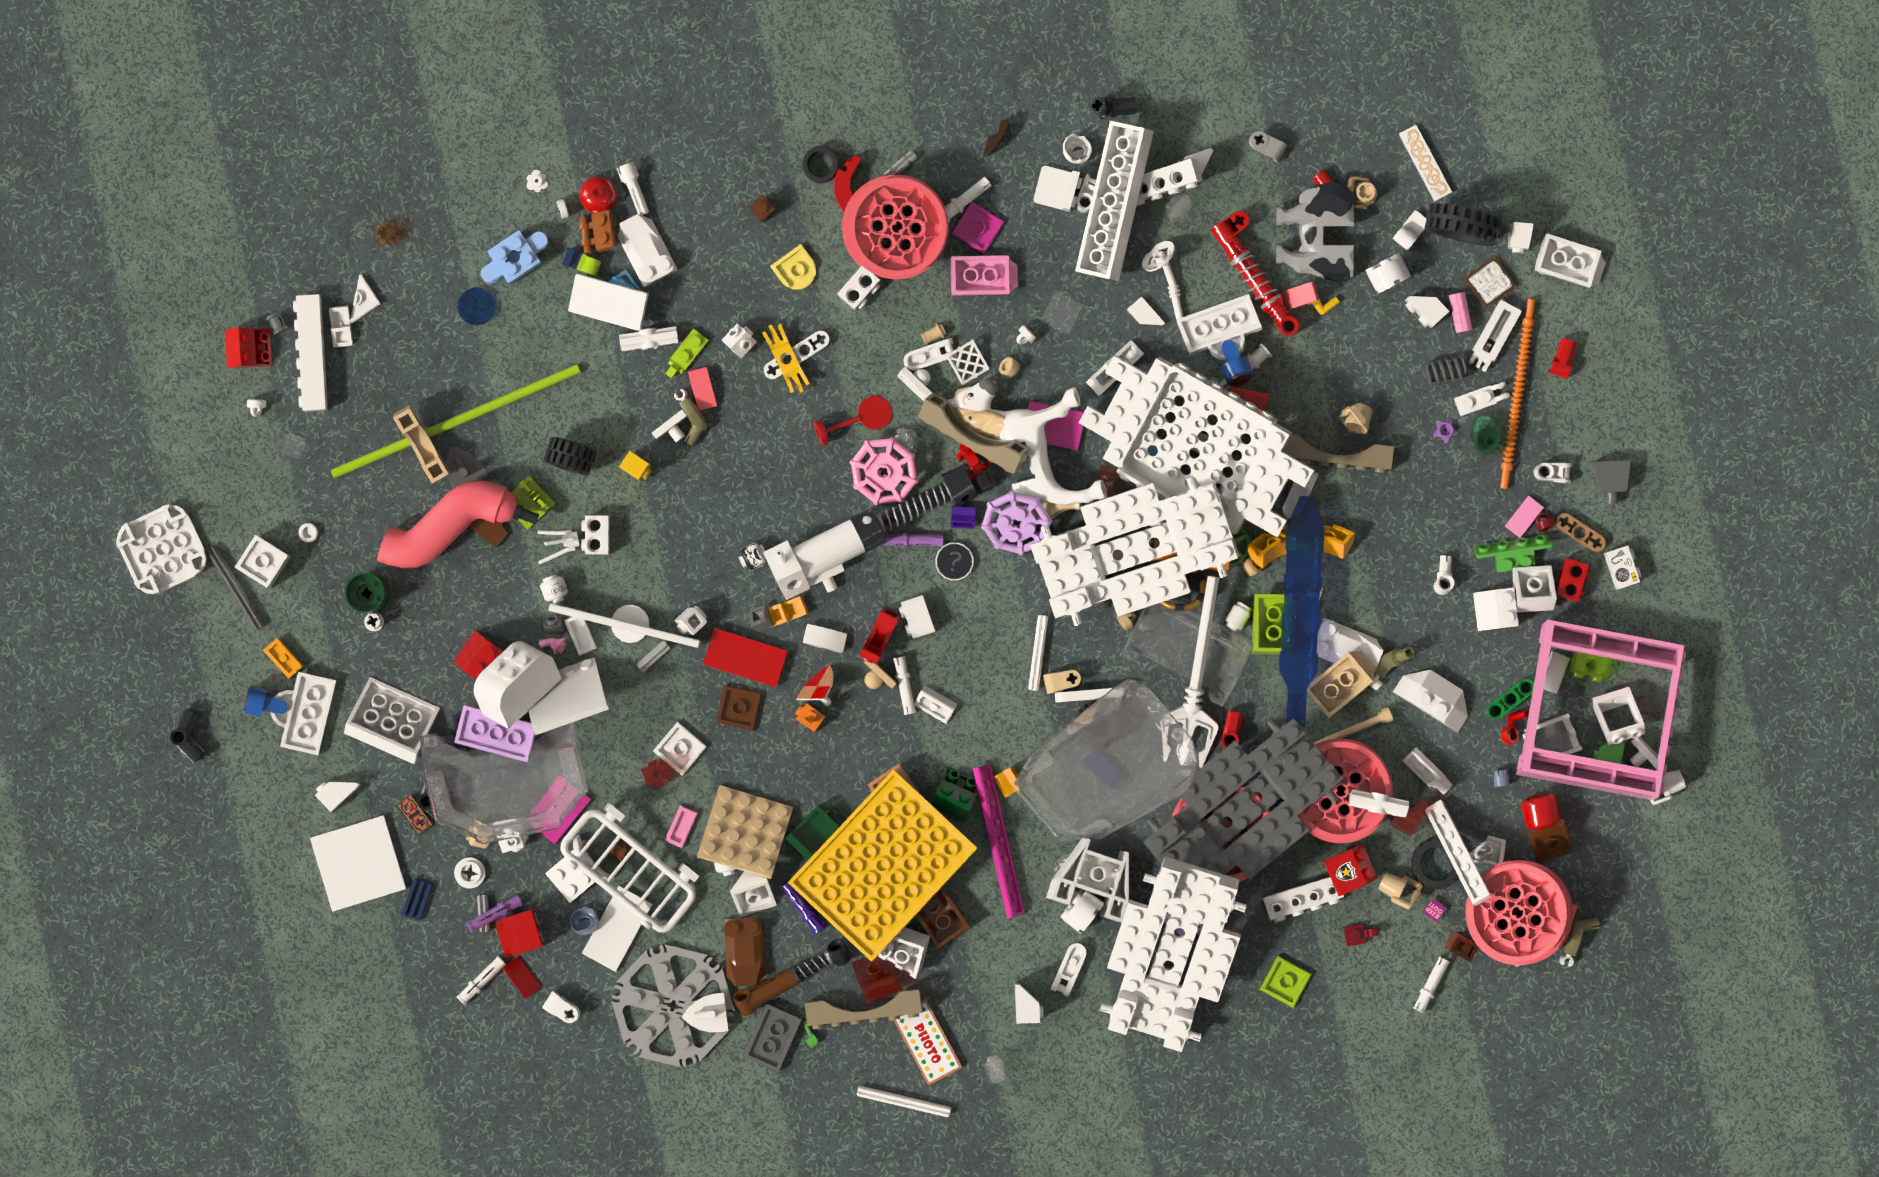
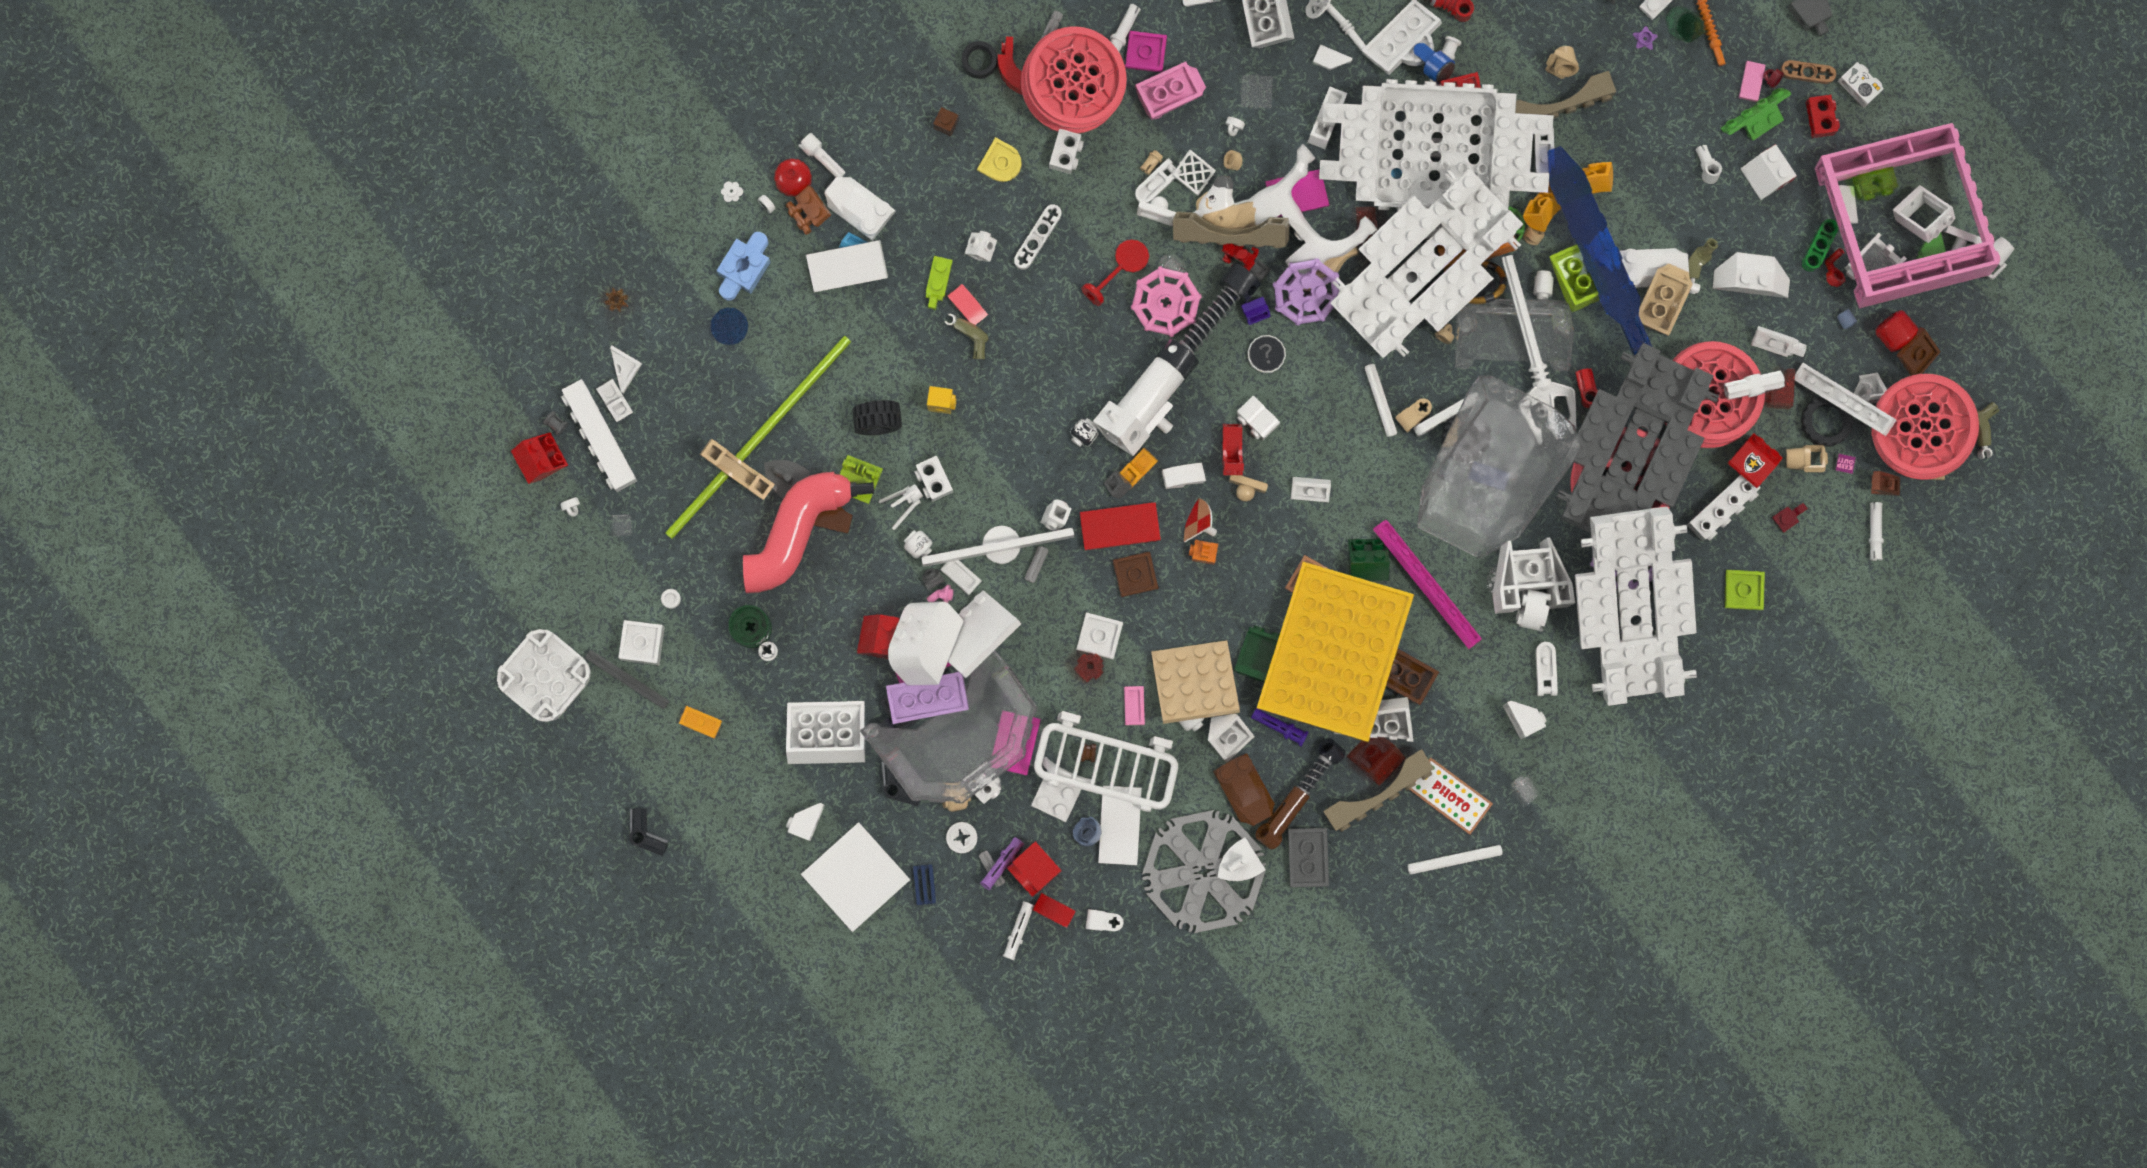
camera: 30 degrees left, 5 degrees down
(299, 710) = (737, 763): white plate -> none
(414, 814) = (886, 808): tile -> none
(581, 262) = (805, 243): leg -> none
(648, 338) = (898, 282): white piece -> none
(671, 427) = (956, 352): white tile -> none
(781, 347) = (1022, 235): yellow piece -> none
(812, 1040) = (1345, 842): bright green hand -> none
(904, 685) = (1274, 483): white pin -> none
(914, 539) = (1230, 347): medium lavender pin -> none
(1006, 780) = (1408, 527): light orange piece -> none
(1383, 716) = (1716, 312): tan piece -> none
(1534, 588) = (1794, 138): white slope -> none
(1556, 472) = (1761, 29): white piece -> none

